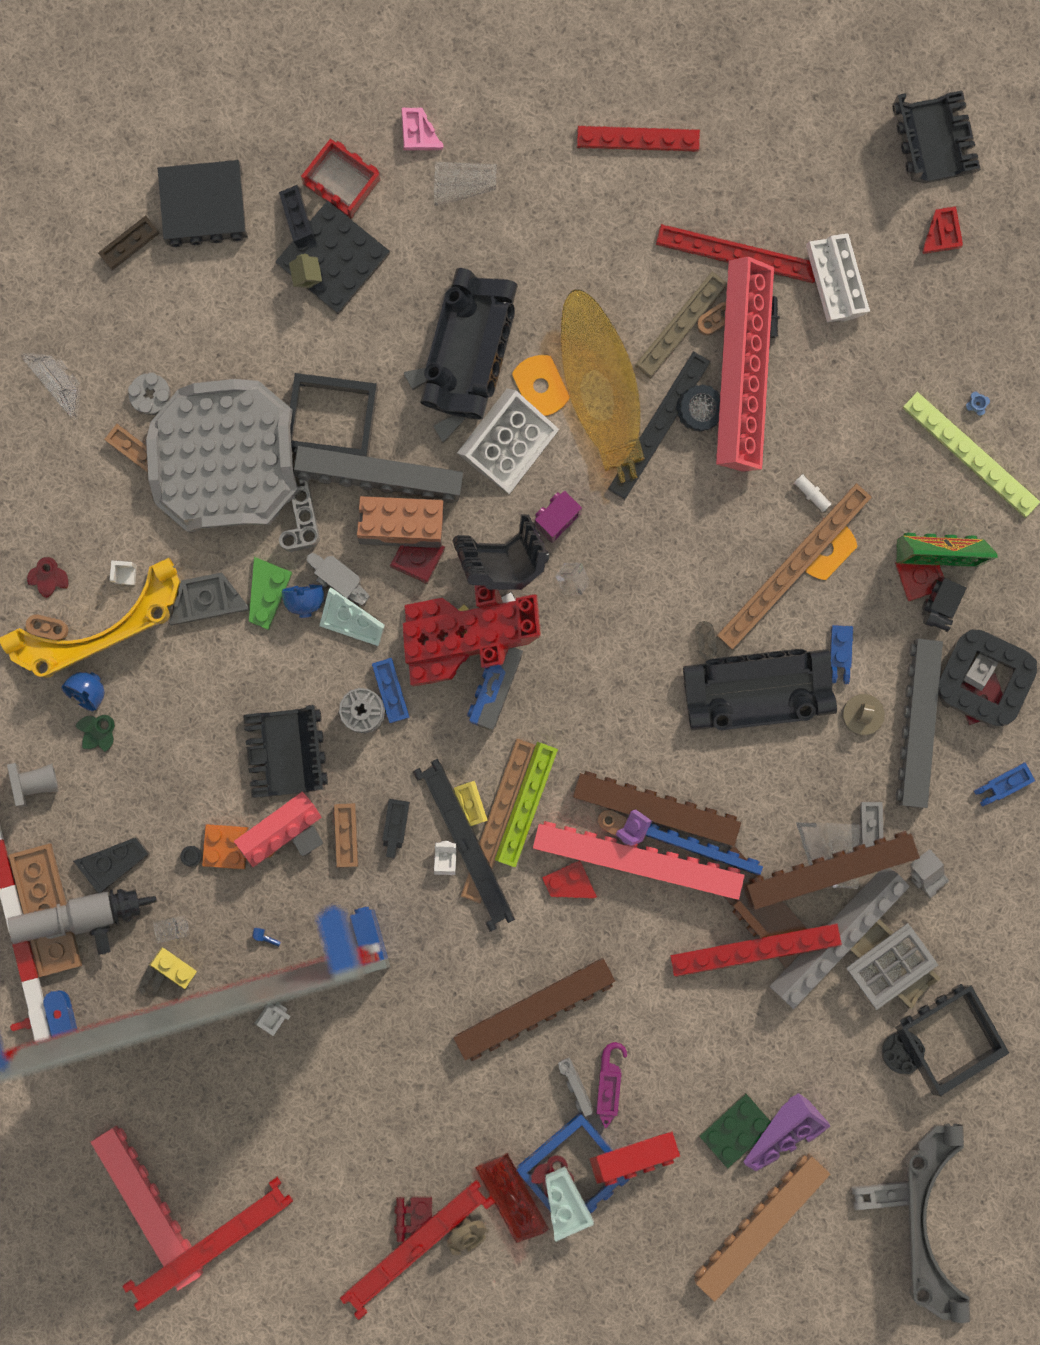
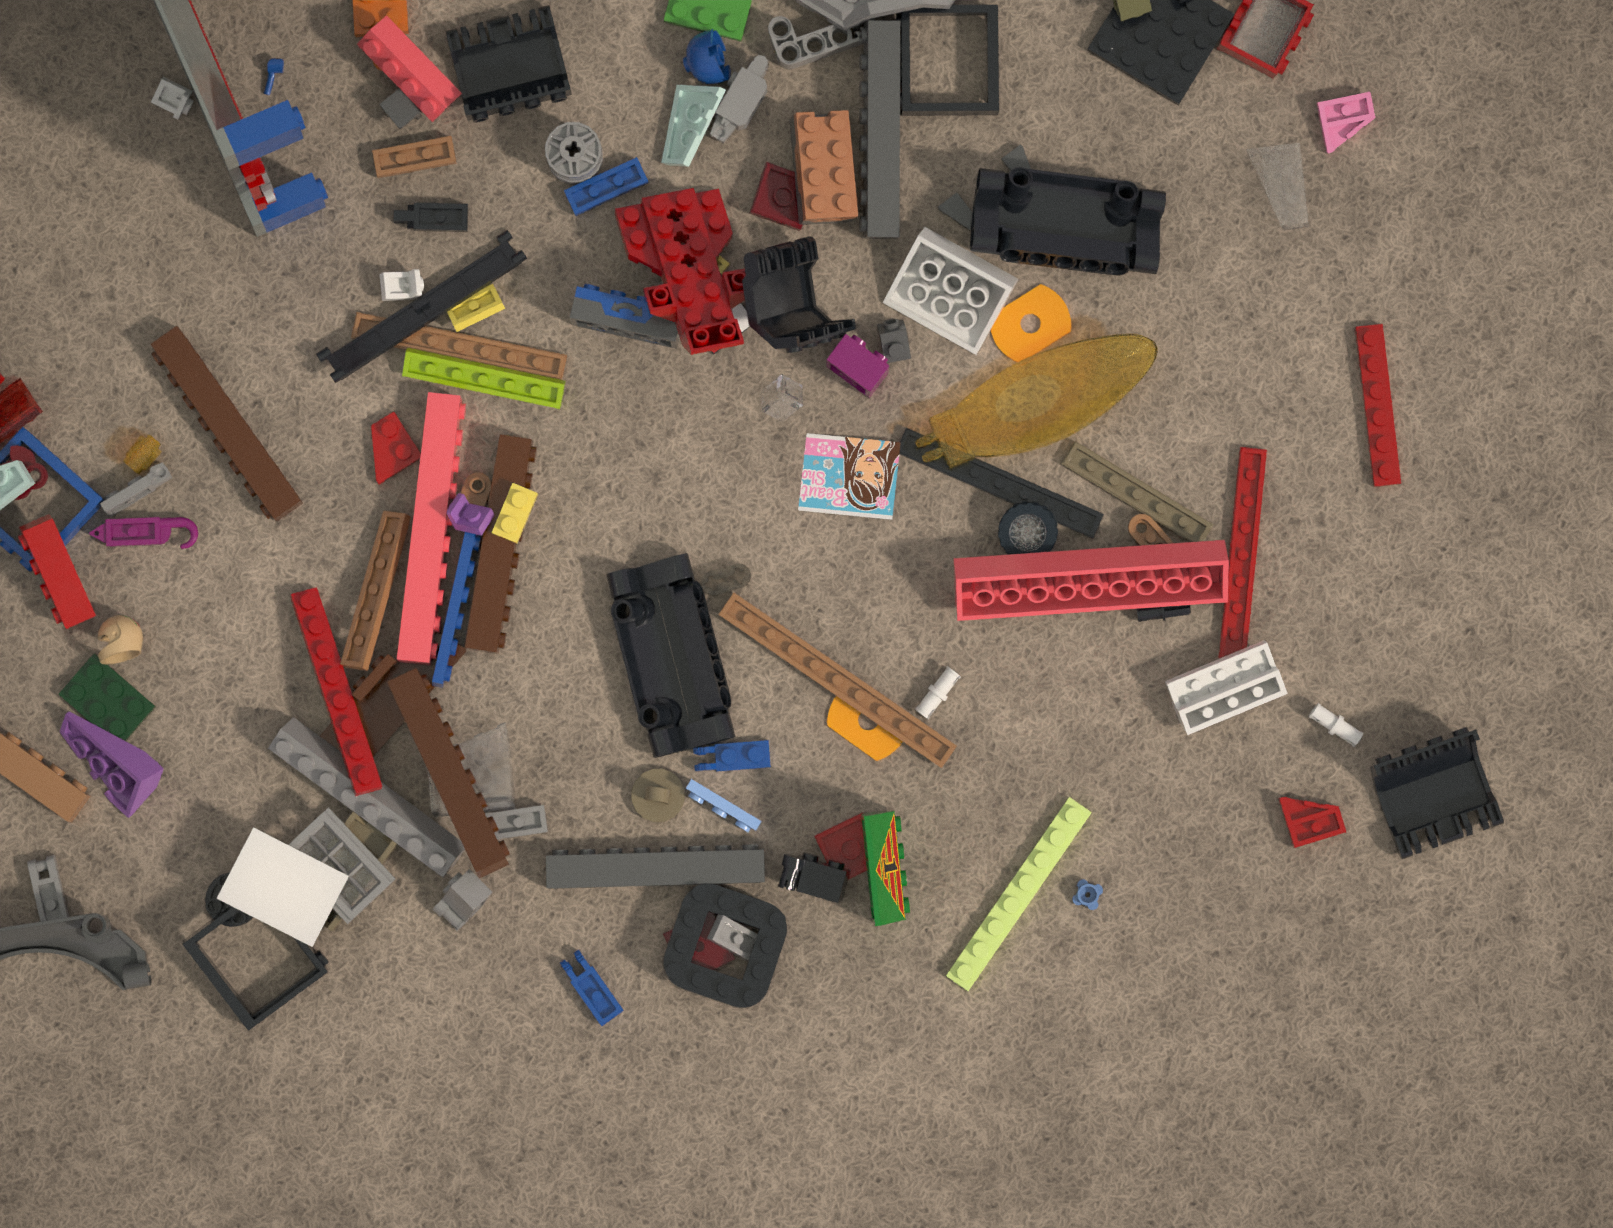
camera: 80 degrees right, 0 degrees up
(539, 488) = (894, 340): none -> dark grey bracket
(548, 1078) = (142, 453): none -> clear yellow brick
(636, 793) = (514, 513): none -> light yellow plate
(639, 536) = (849, 476): none -> sticker
(681, 909) = (375, 590): none -> medium nougat plate
(691, 1111) = (124, 639): none -> tan helmet
(874, 203) = (1336, 724): none -> white pin
(879, 666) = (722, 806): none -> light blue plate
(905, 1011) = (282, 887): none -> white sticker

